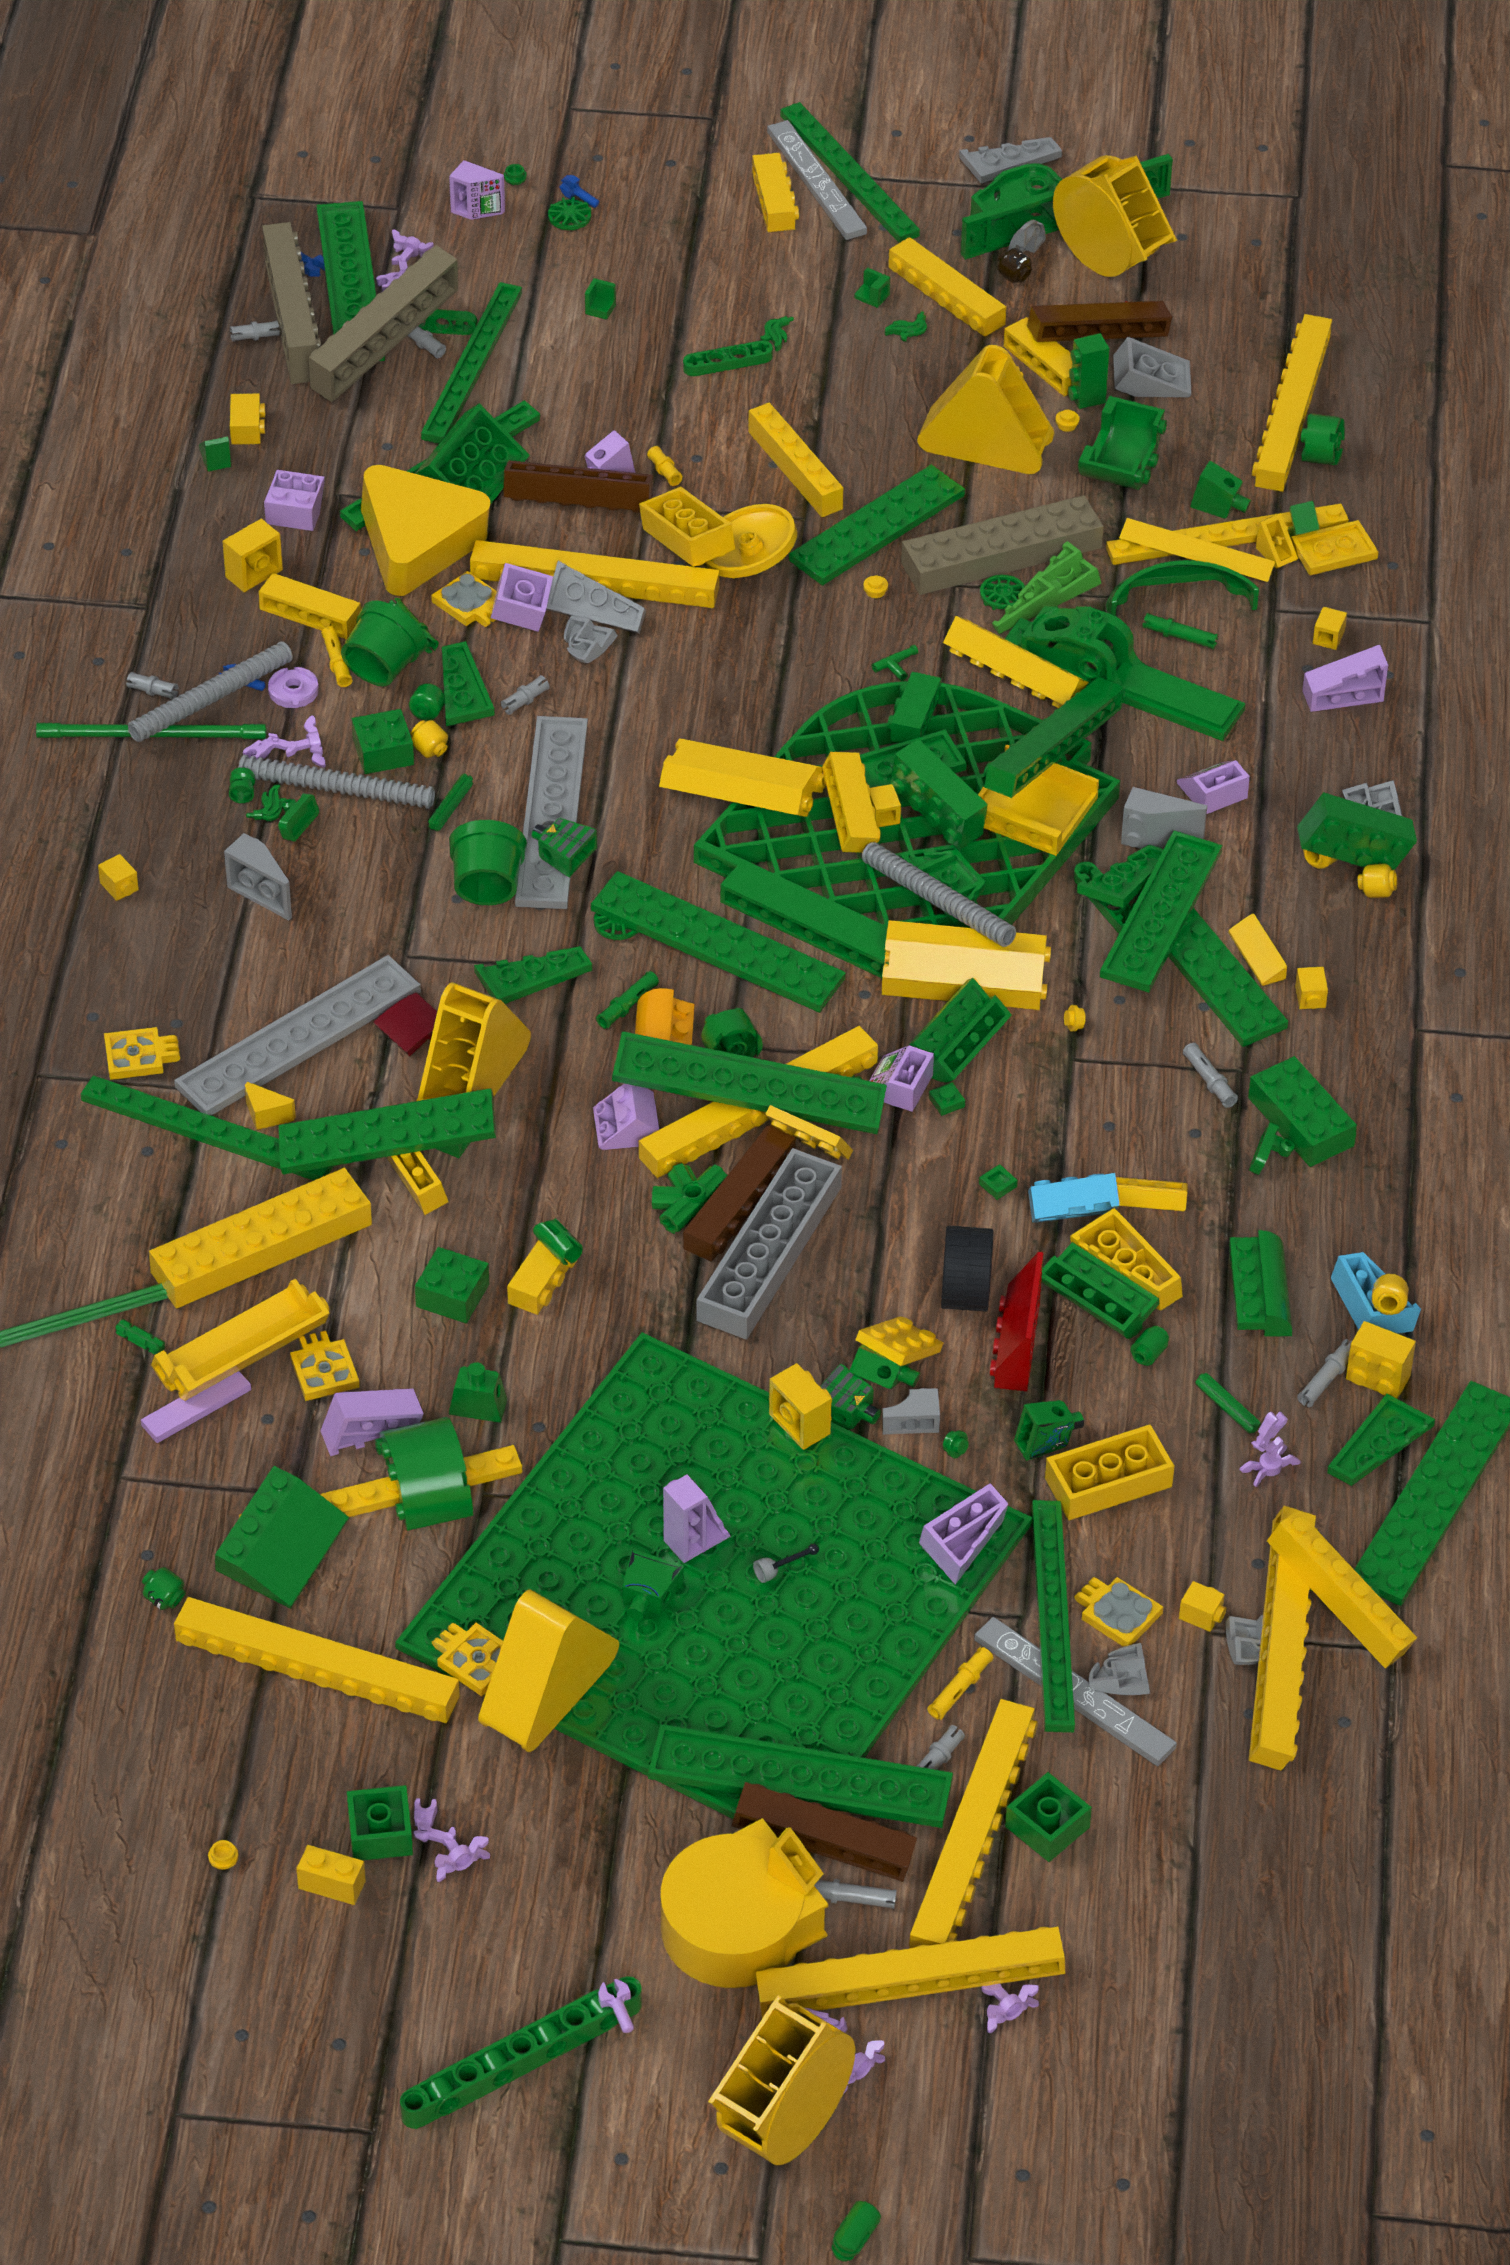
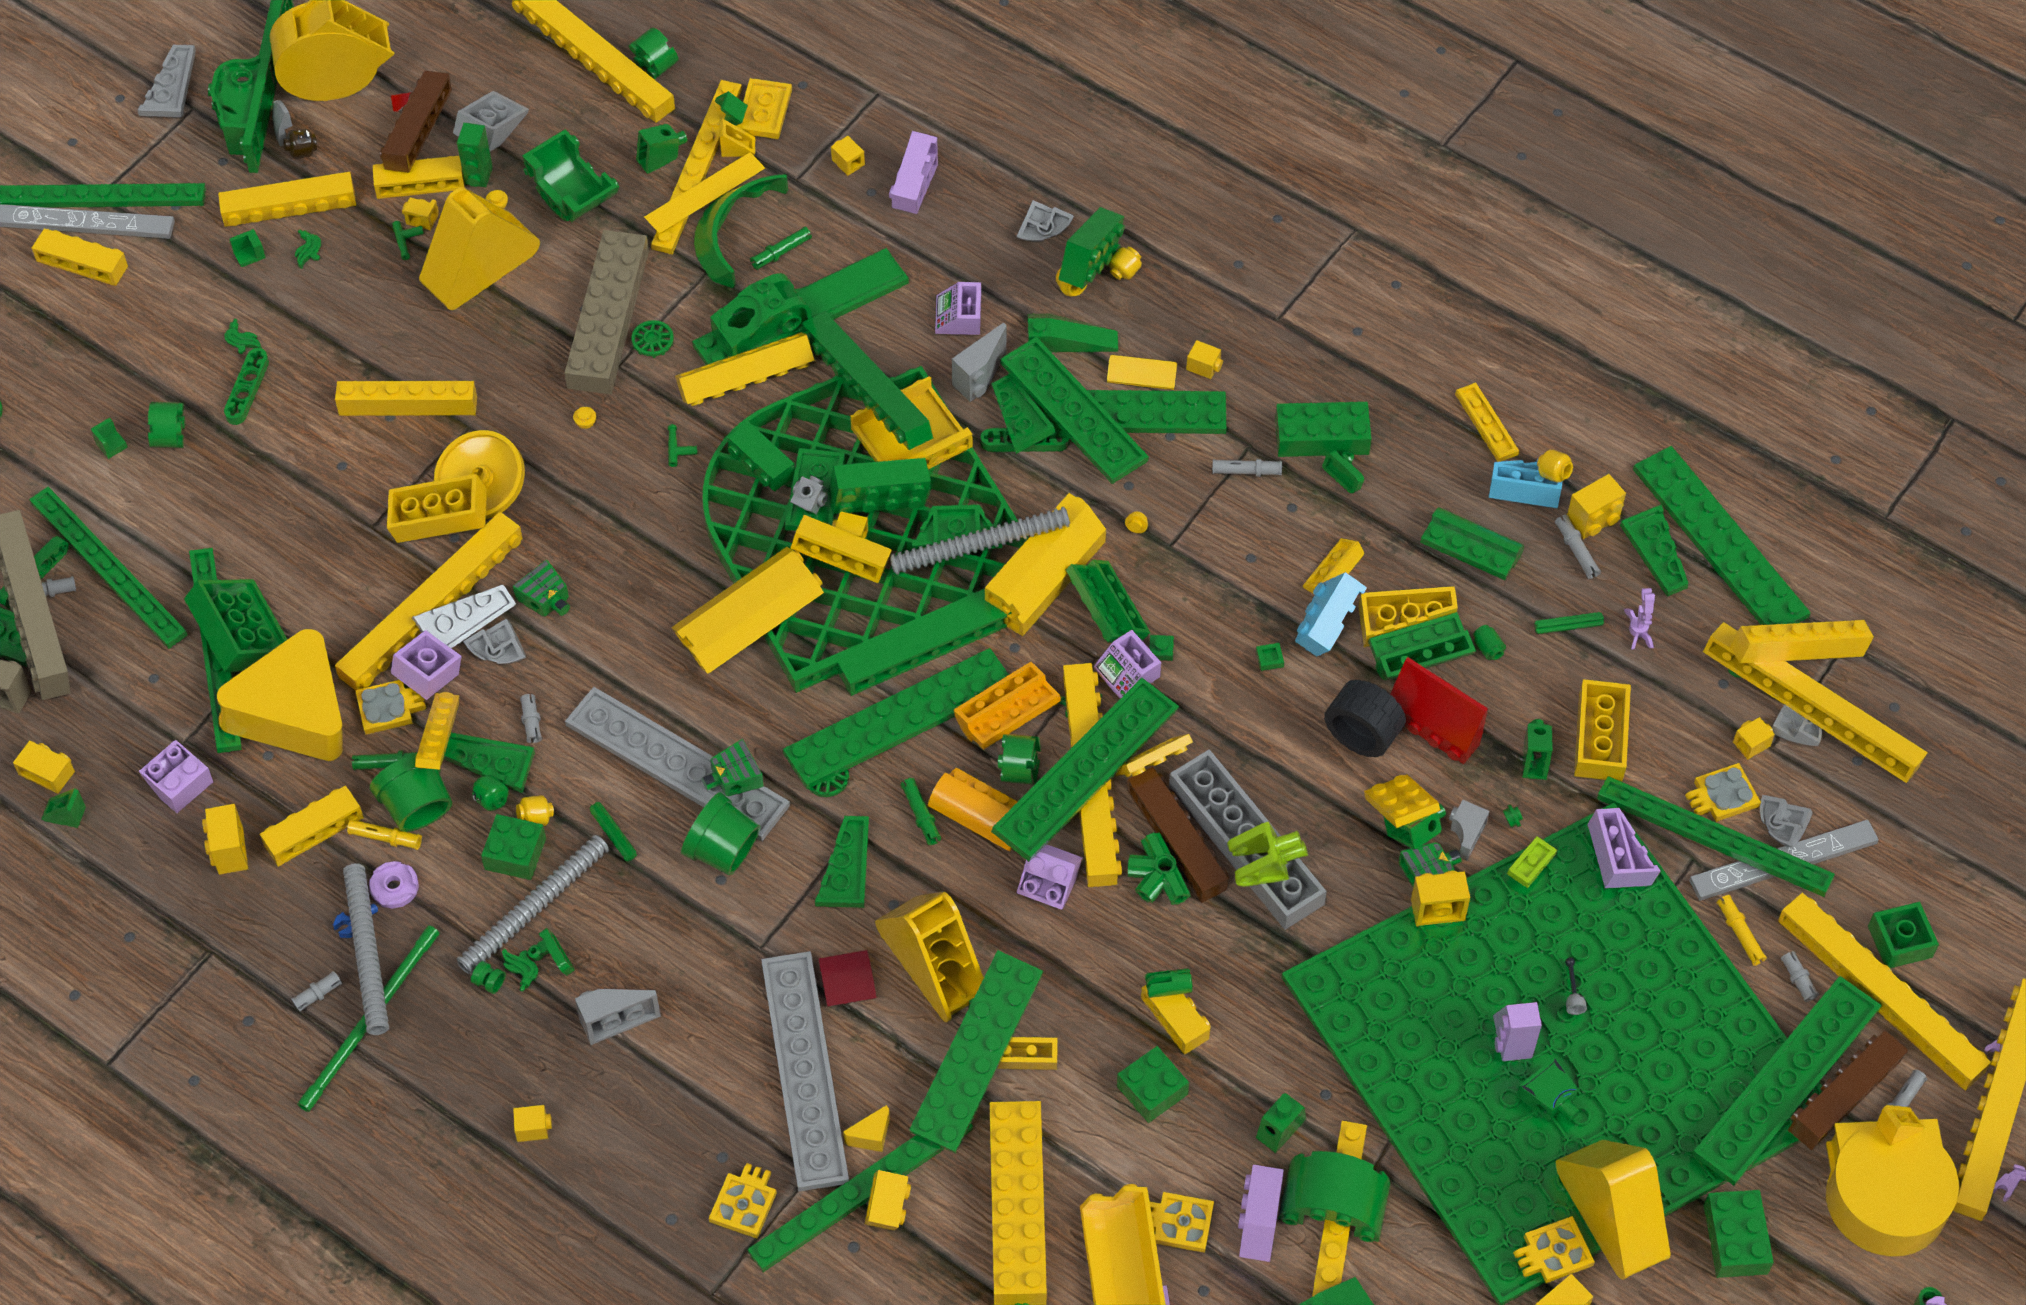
camera: 60 degrees left, 10 degrees up
(199, 1143) = (887, 1200): none -> yellow piece
(263, 748) = (474, 899): lavender piece -> none
(448, 625) = (437, 731): none -> yellow plate
(576, 486) = (324, 562): reddish brown brick -> none
(599, 1805) = (1738, 1233): none -> green brick
(611, 454) = (313, 527): lavender torso -> none
(638, 322) = (166, 424): none -> green brick
(664, 465) = (340, 491): yellow pin -> none
(665, 641) = (543, 591): none -> green torso
(745, 1251) = (1272, 866): none -> lime piece
(788, 1007) = (1006, 705): none -> light orange brick
(876, 524) = (515, 380): green plate -> none
(883, 749) = (809, 494): none -> light grey brick
(905, 1471) = (1532, 862): none -> lime plate
(1059, 582) = (673, 296): bright green wedge -> none
(1256, 874) = (1070, 335): none -> green wedge
(1427, 1242) = (1487, 422): none -> yellow tile

